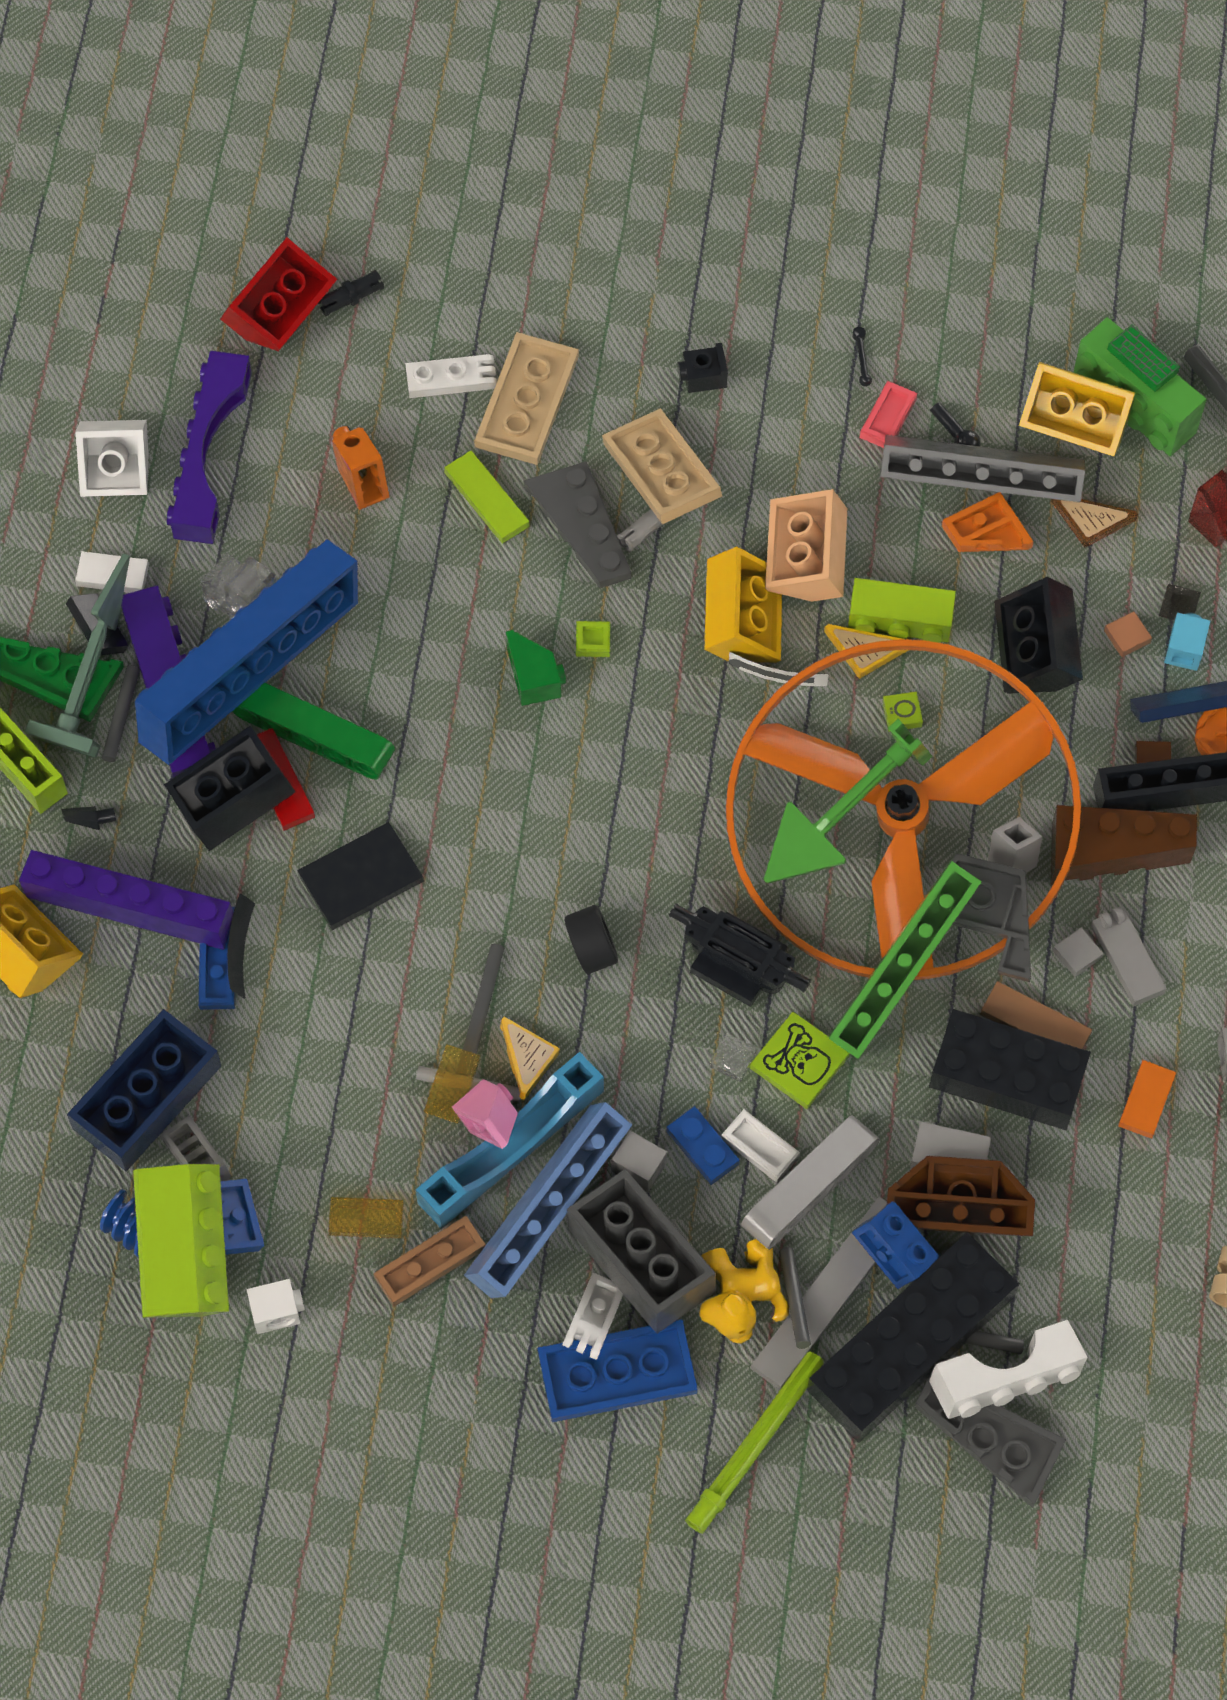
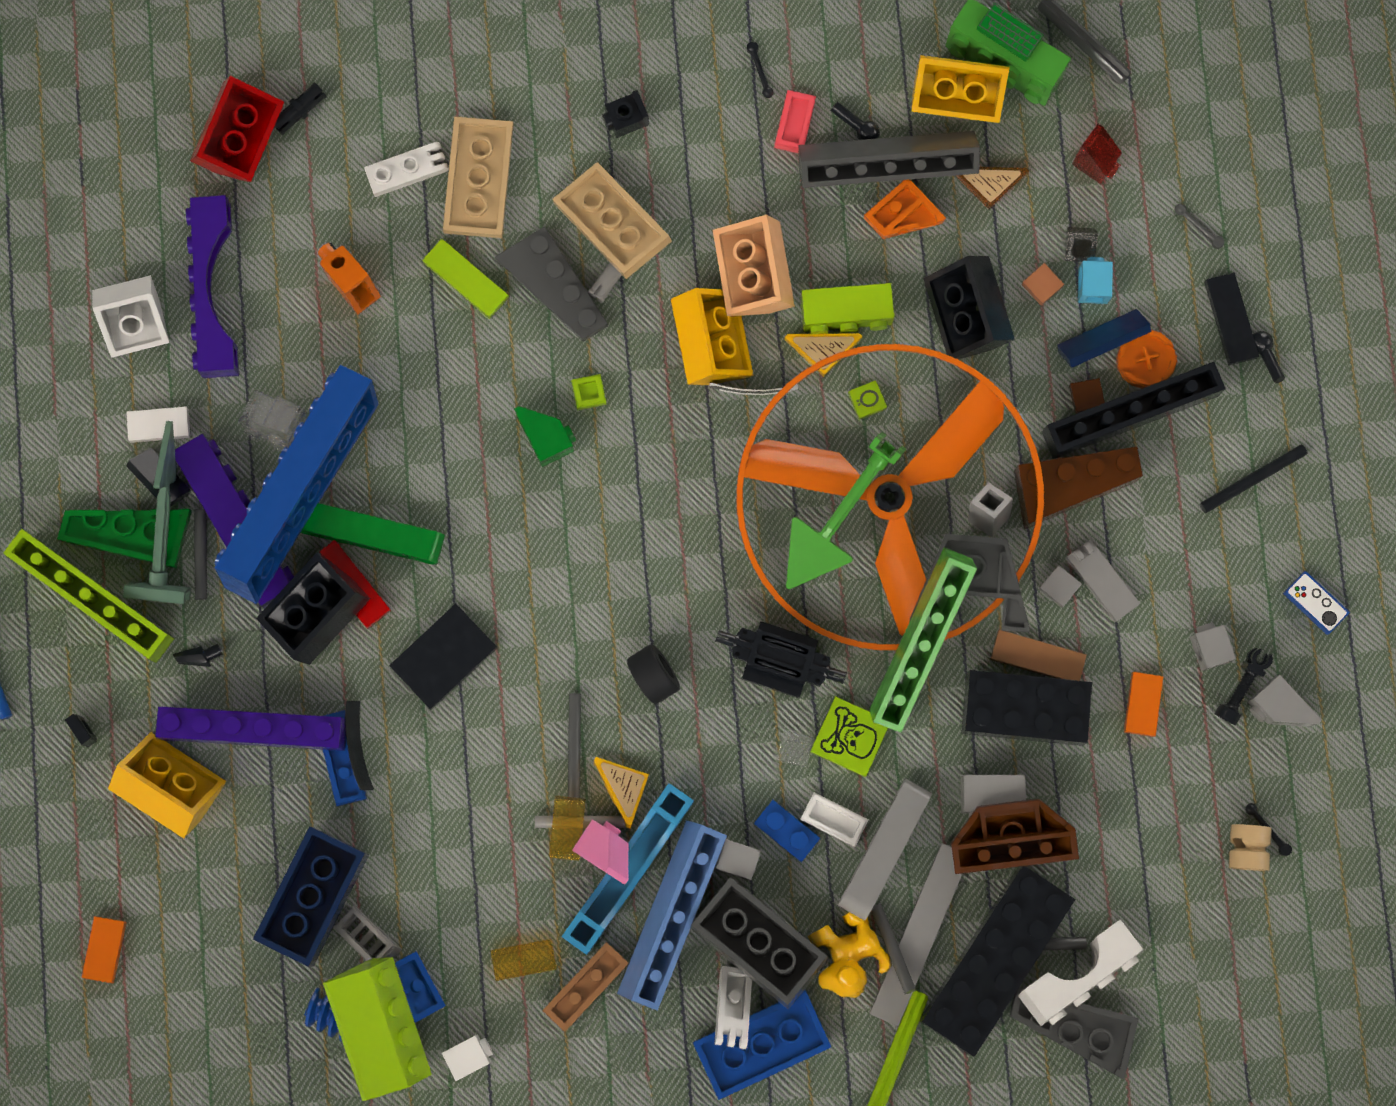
camera: 15 degrees left, 15 degrees up
(896, 1245) = (968, 889): blue bracket -> none

